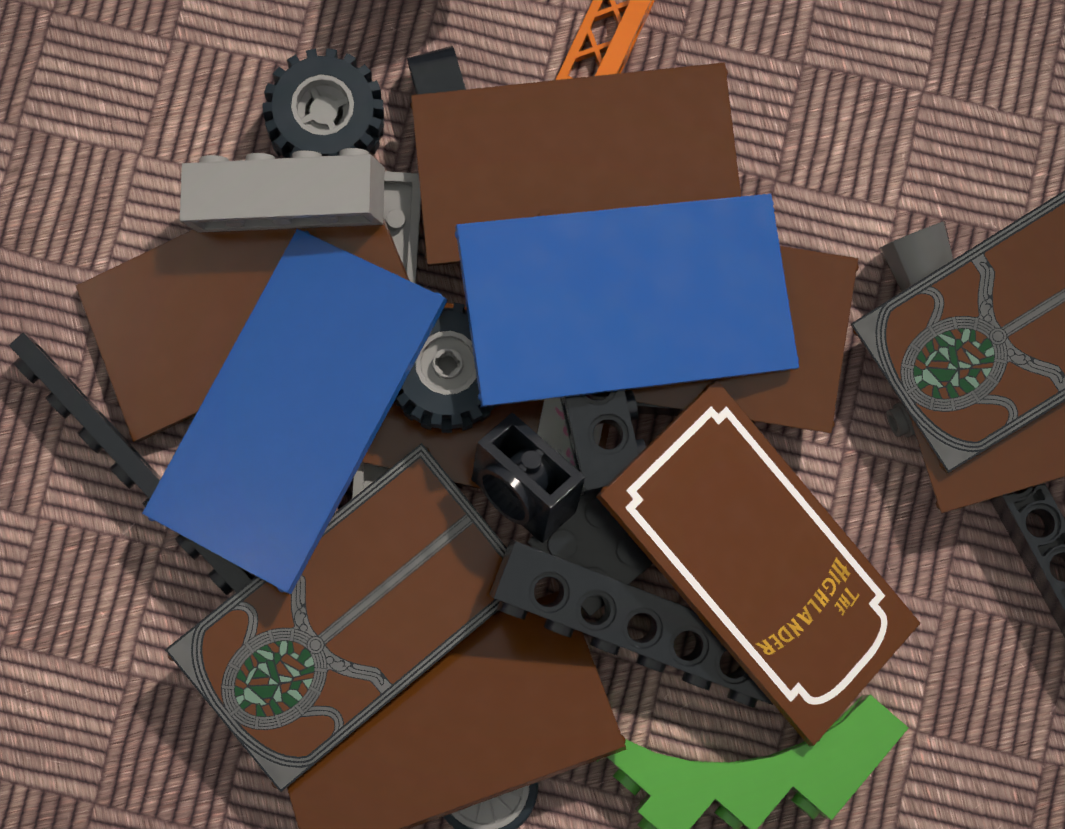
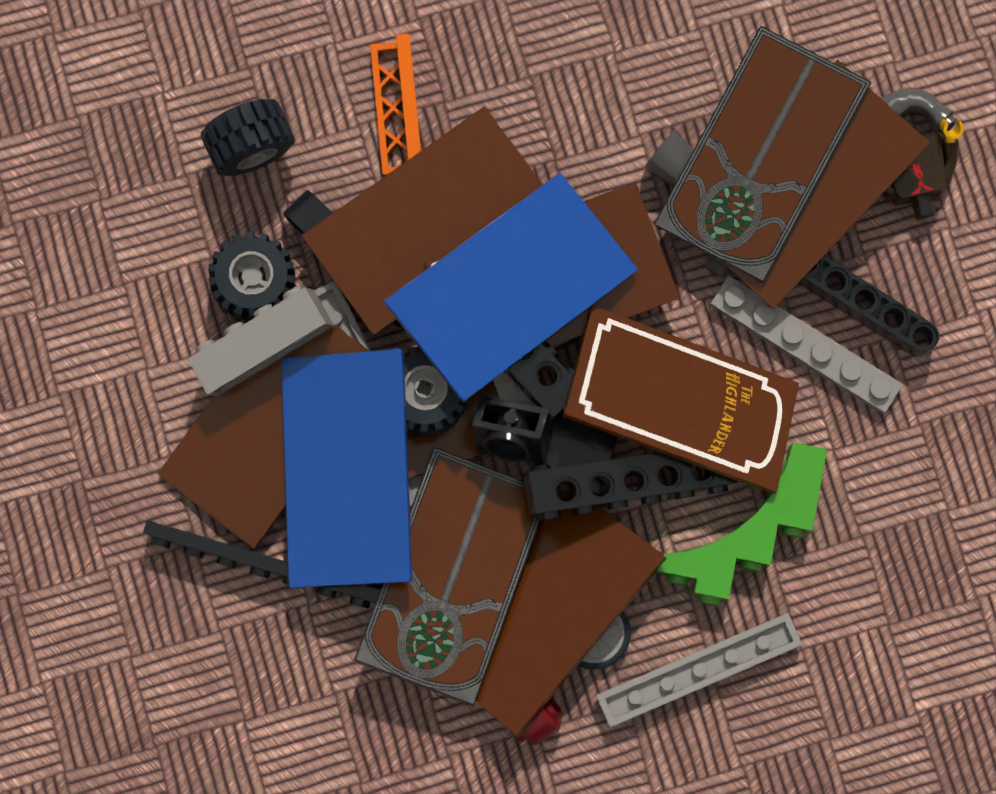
camera: 30 degrees left, 0 degrees up
(957, 583) = (806, 345): none -> light grey plate

